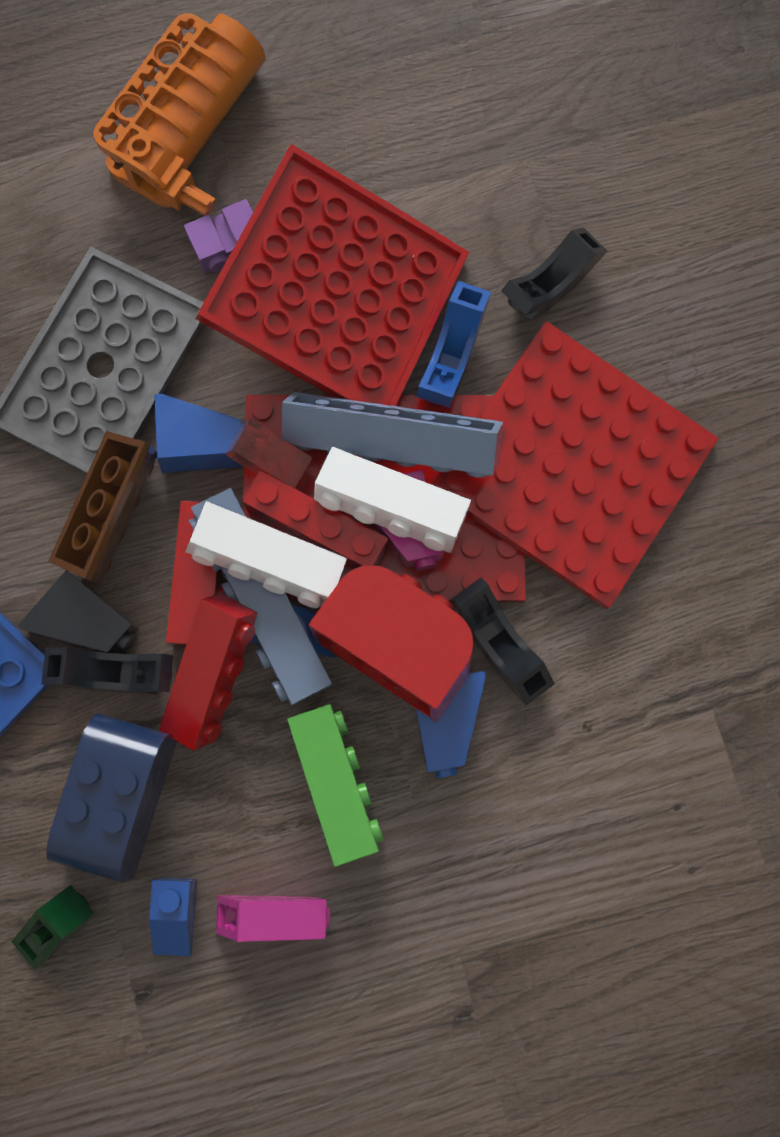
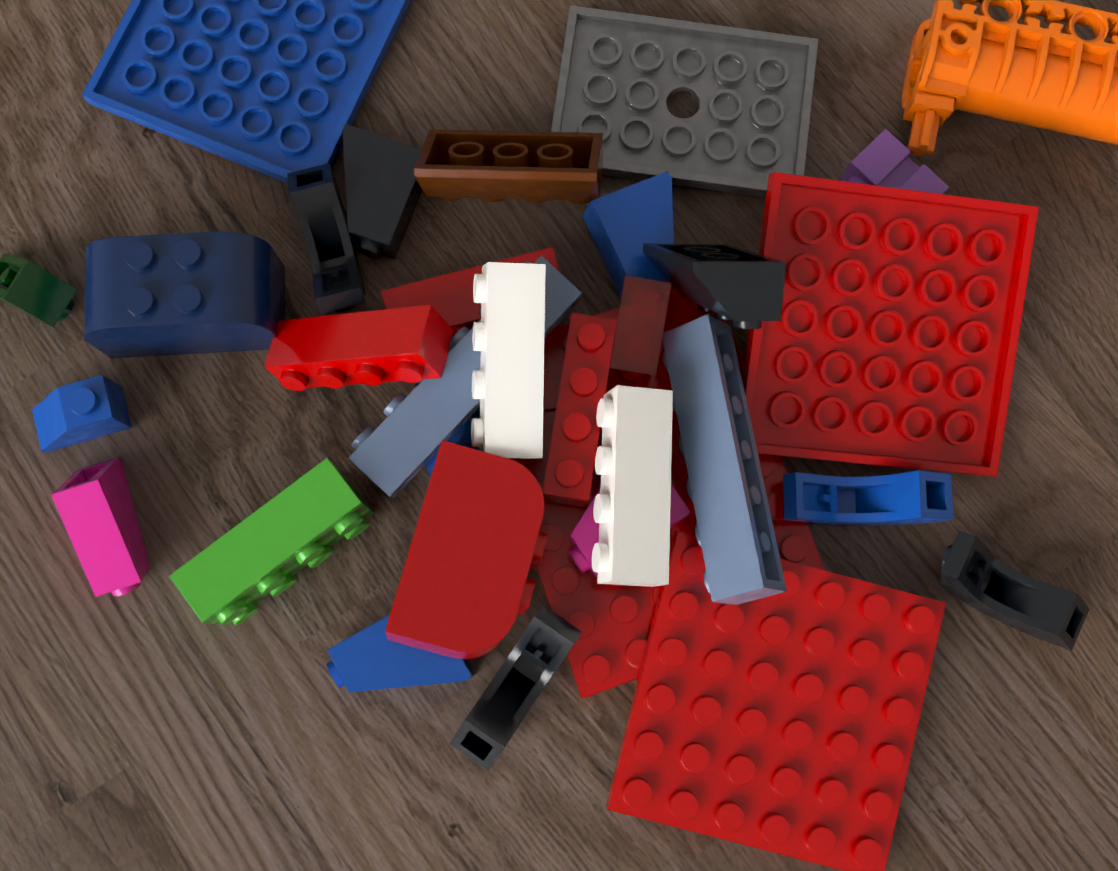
camera: 65 degrees right, 0 degrees up
(260, 381) = (723, 280): none -> black slope

